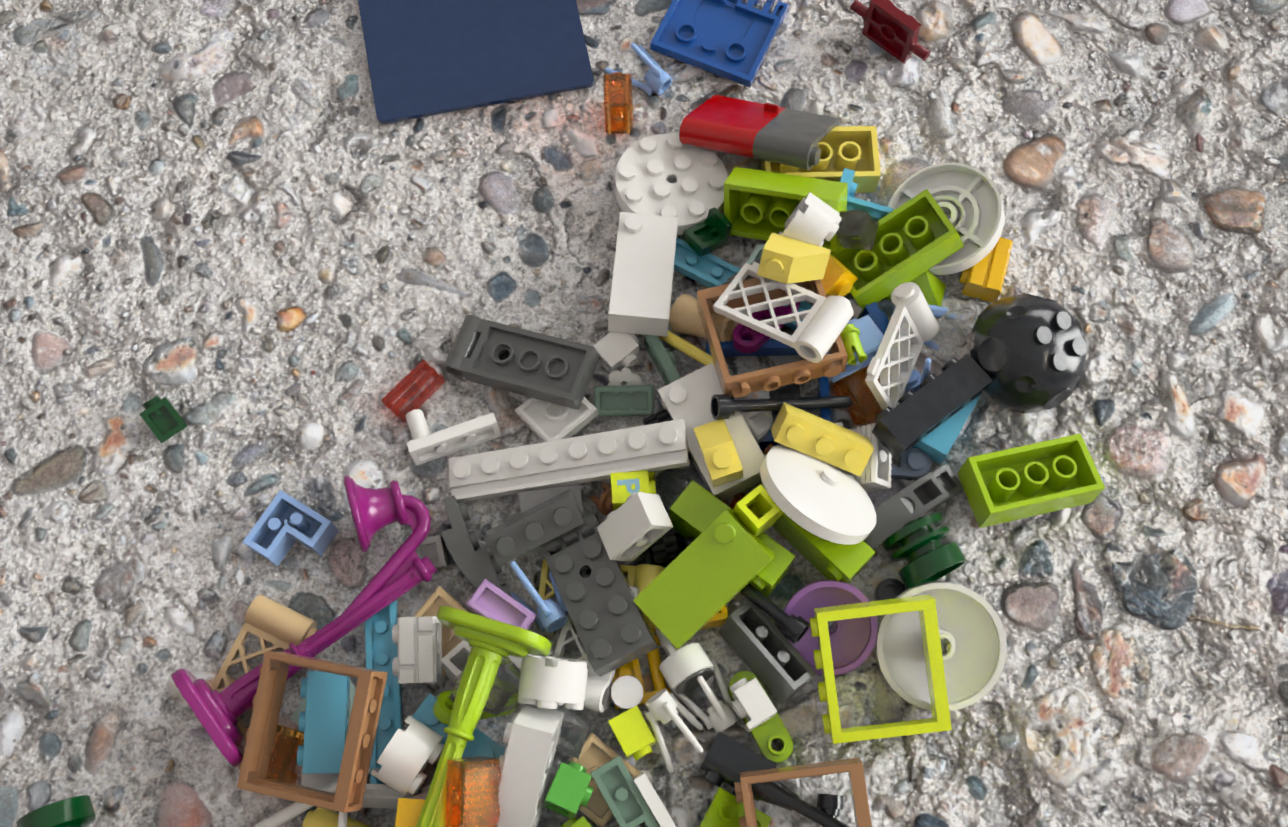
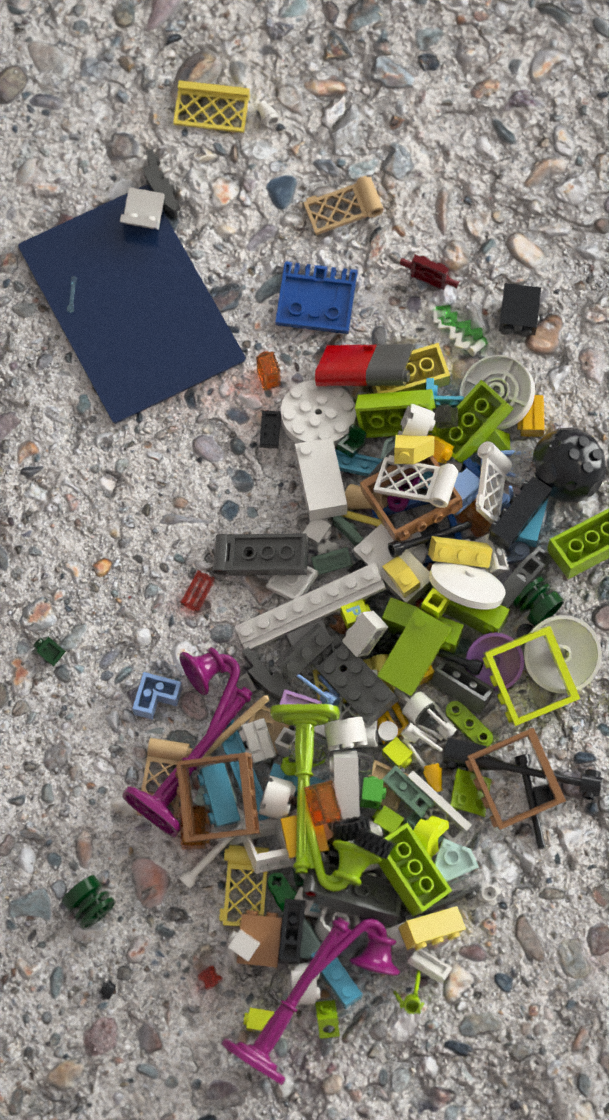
camera: 15 degrees left, 0 degrees up
(387, 617) = (237, 724): none -> tan piece
(447, 441) = (221, 622): white piece -> none
(595, 187) = (270, 429): none -> black plate
(656, 78) = (286, 344): light blue plant -> none
(678, 786) = (433, 776): none -> yellow cone
(751, 703) = (462, 716): white brick -> none
(852, 344) = (462, 490): lime pin -> none
(907, 112) = (454, 324): none -> piece
(1008, 113) = (519, 309): none -> black brick

